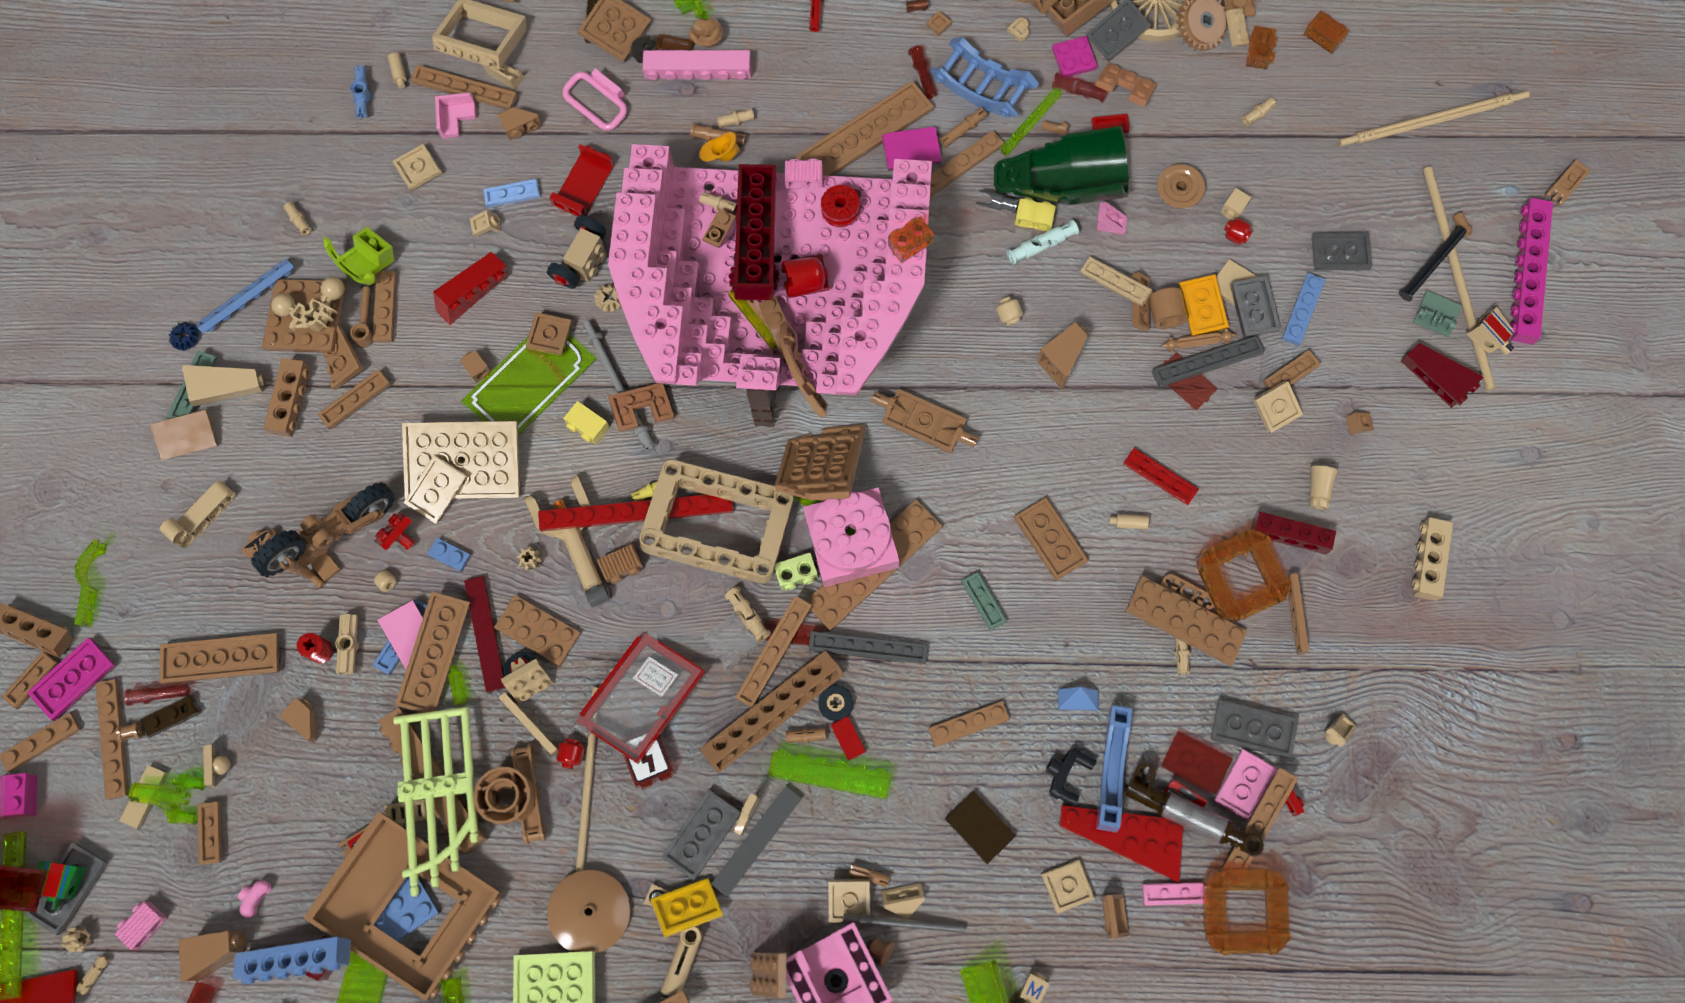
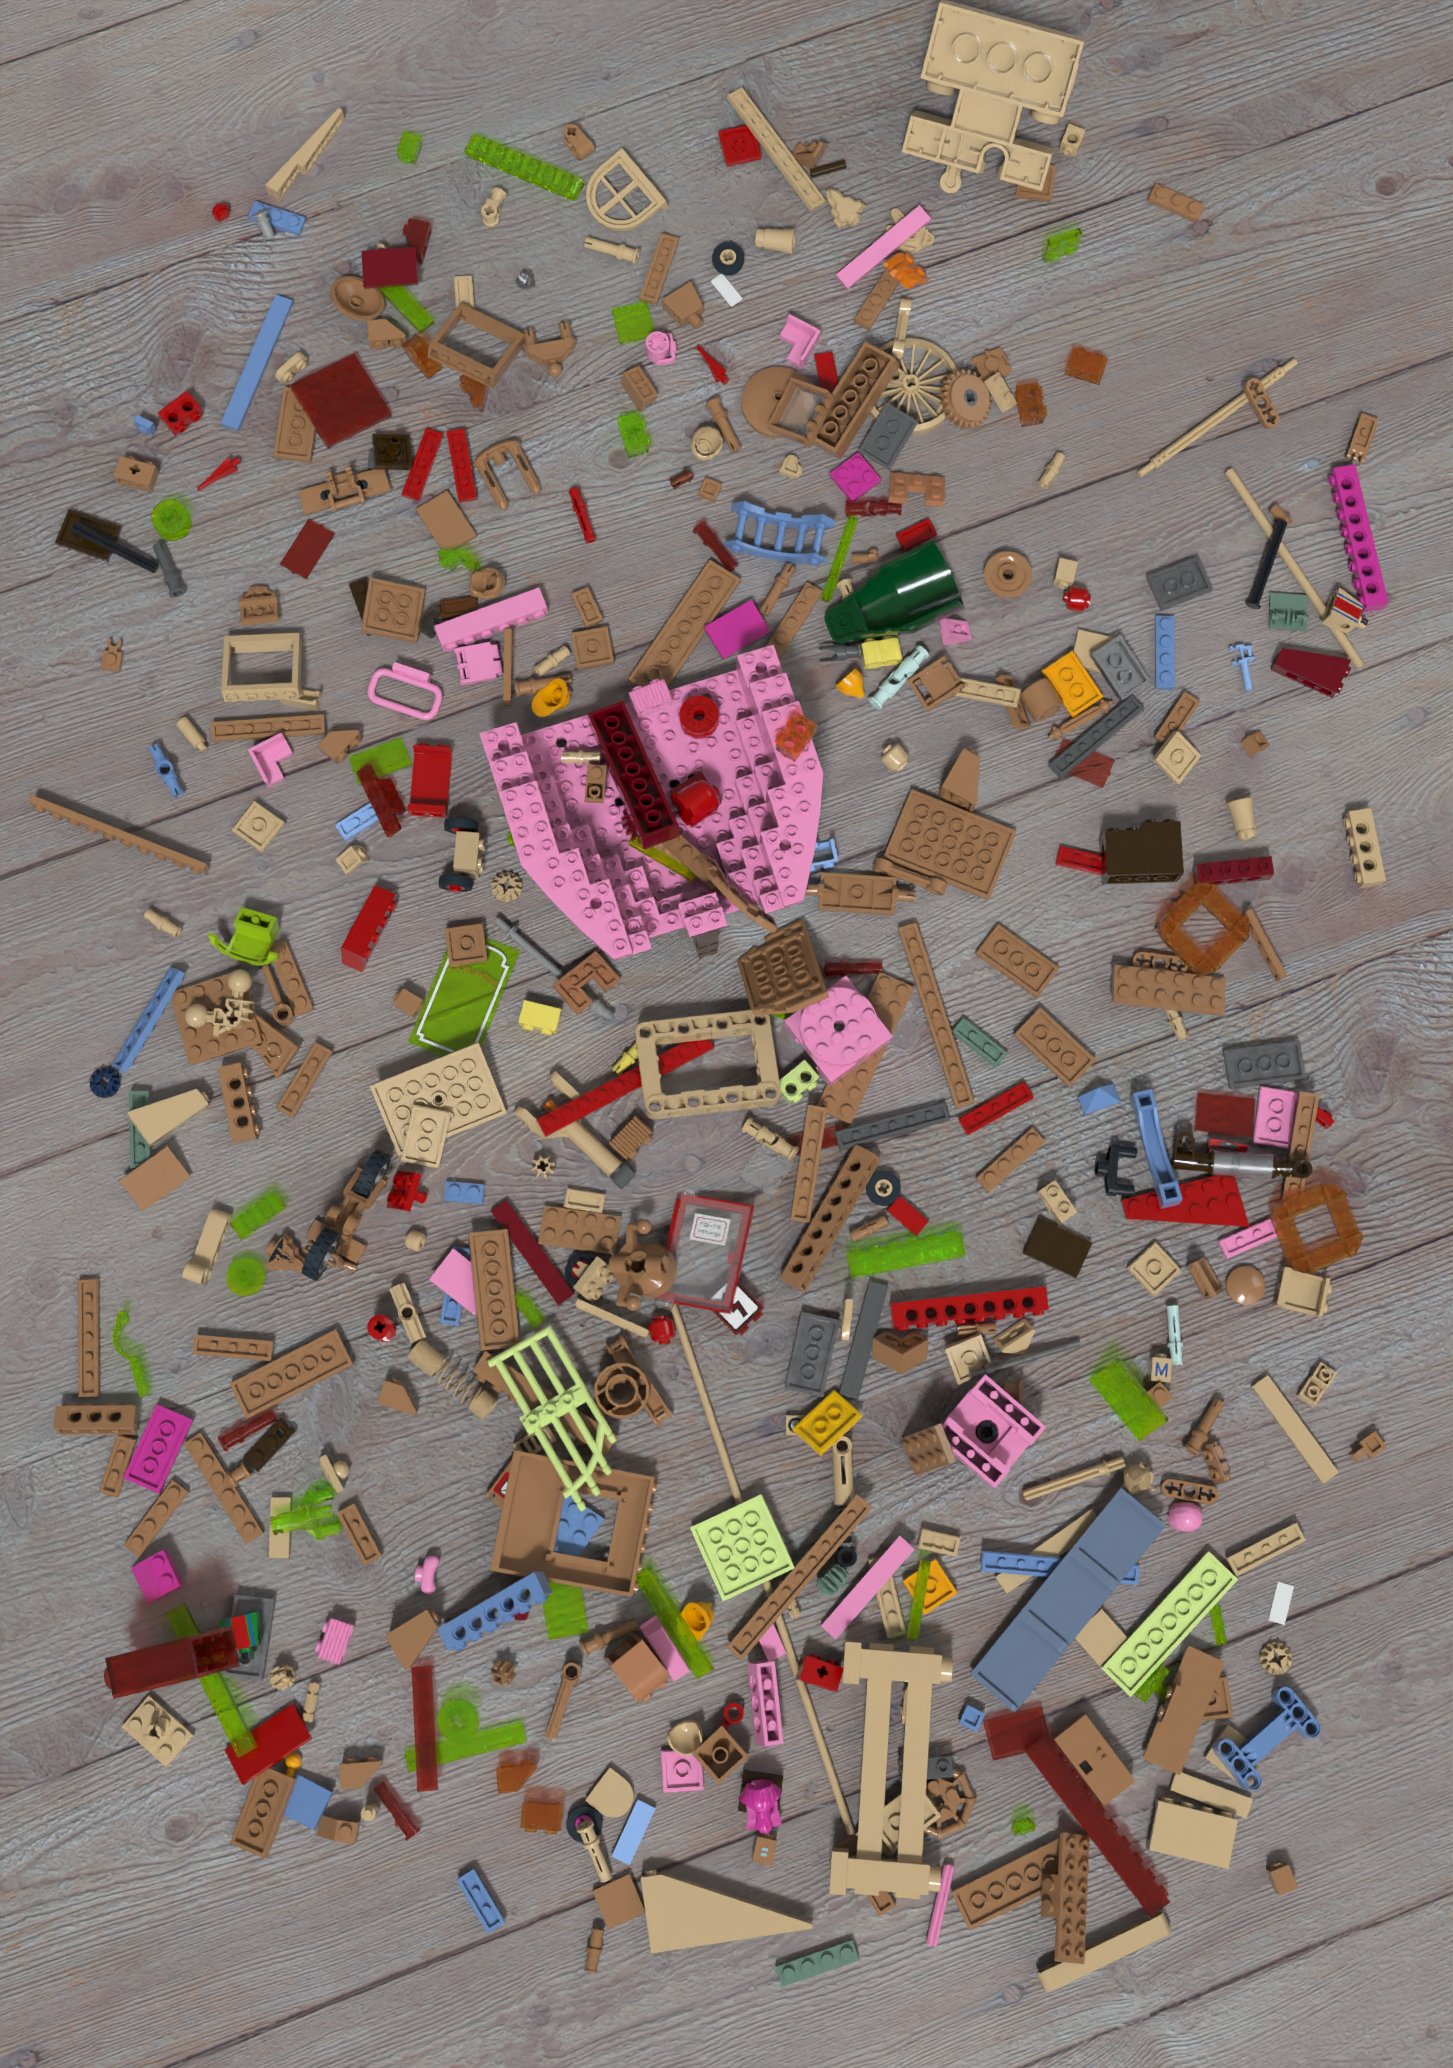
camera: 30 degrees left, 5 degrees up
(61, 554) = (88, 1338): none -> medium nougat tile
(180, 613) = (233, 1347): none -> medium nougat plate
(220, 554) = (245, 1277): none -> clear neon green piece
(257, 502) = (258, 1215): none -> clear neon green beam
(299, 135) = (125, 838): none -> medium nougat plate
(348, 700) = (431, 1361): none -> tan piece
(535, 181) = (383, 799): none -> clear red bracket
(547, 150) = (383, 758): none -> clear neon green piece
(553, 605) = (584, 1201): none -> tan tile
(568, 906) = (722, 1466): medium nougat dish -> none
(573, 687) = (628, 1266): none -> medium nougat piece
(671, 97) = (478, 663): none -> bright pink plate
(693, 109) = (508, 661): none -> medium nougat tile
(775, 120) = (592, 648): none -> medium nougat plate
(786, 84) = (587, 607): none -> medium nougat plate
(786, 868) = (900, 1353): none -> medium nougat panel
(803, 825) = (1037, 1295): none -> red brick
(887, 485) = (842, 968): none -> clear red pin
(900, 373) = (824, 855): none -> light blue window
(952, 561) = (935, 1015): none -> medium nougat plate
(974, 669) = (995, 1108): none -> red tile
(996, 232) = (851, 684): none -> light orange helmet
(996, 782) = (1056, 1202): none -> tan brick
(997, 438) = (887, 868): none -> medium nougat piece
(1023, 146) = (845, 588): none -> tan bush
(1029, 408) = (949, 844): none -> medium nougat plate
(1054, 633) = (1054, 1047): none -> medium nougat plate
(1055, 985) = (1172, 1312): none -> light aqua pin
(1079, 259) = (939, 681): none -> medium nougat container
(1130, 521) = (1083, 917): tan cylinder -> none
(1153, 939) = (1245, 1285): none -> medium nougat dish
(1208, 970) = (1302, 1292): none -> tan panel
(1210, 483) = (1143, 854): none -> dark brown piece
(1340, 730) = (1339, 1037): tan tile -> none
(1376, 345) = (1244, 665): none -> light blue piece
(1473, 106) = (1268, 404): none -> medium nougat beam

